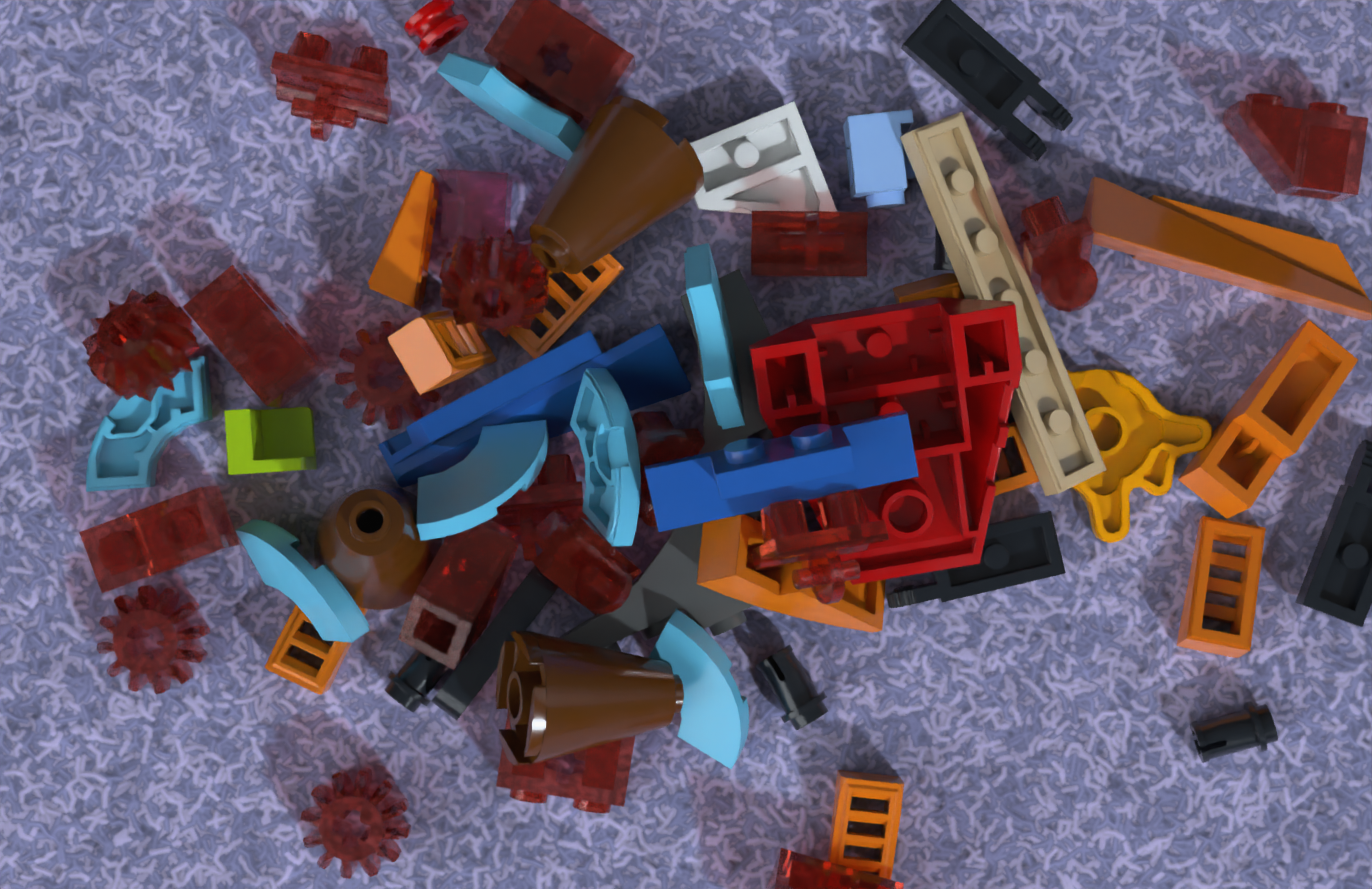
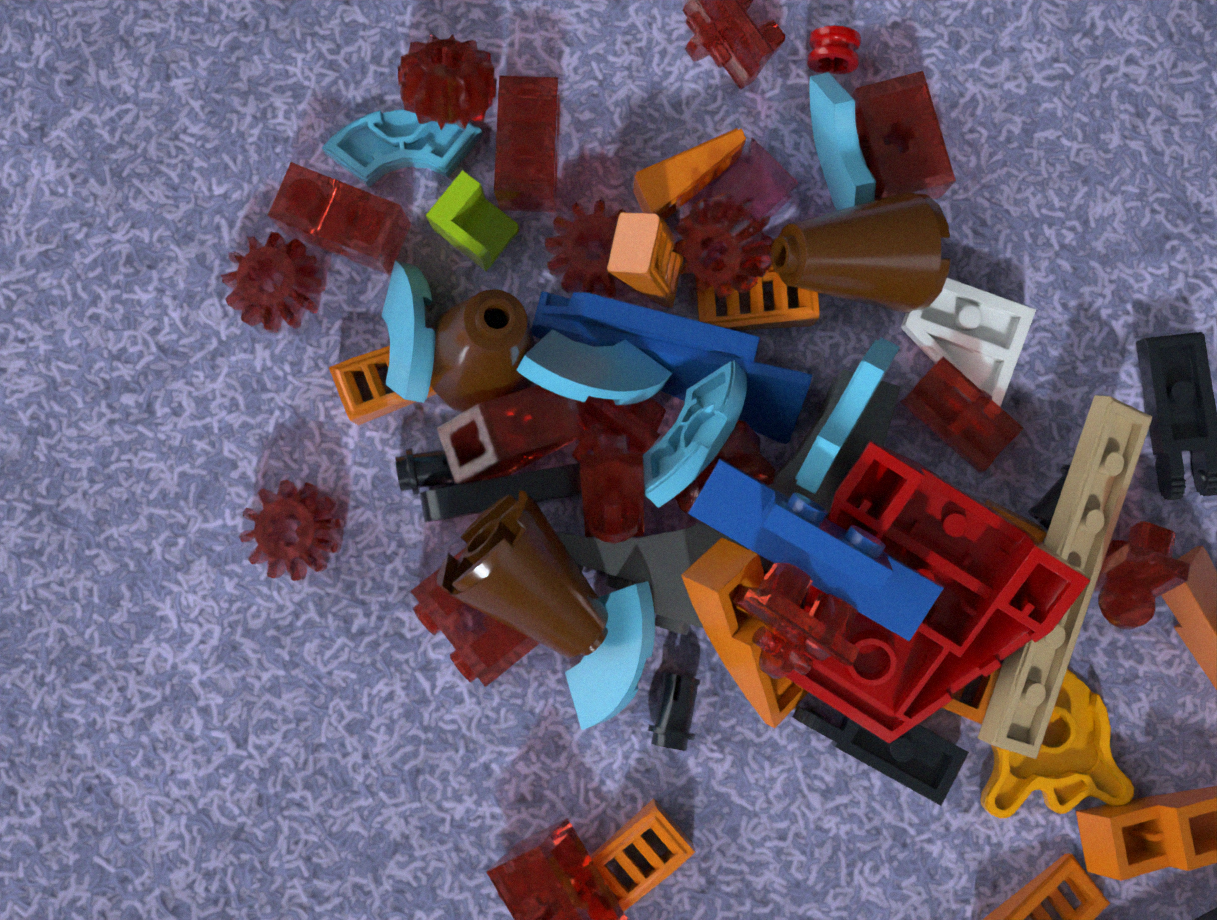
camera: 40 degrees right, 5 degrees down
(877, 158) = (1060, 399): light blue brick -> none

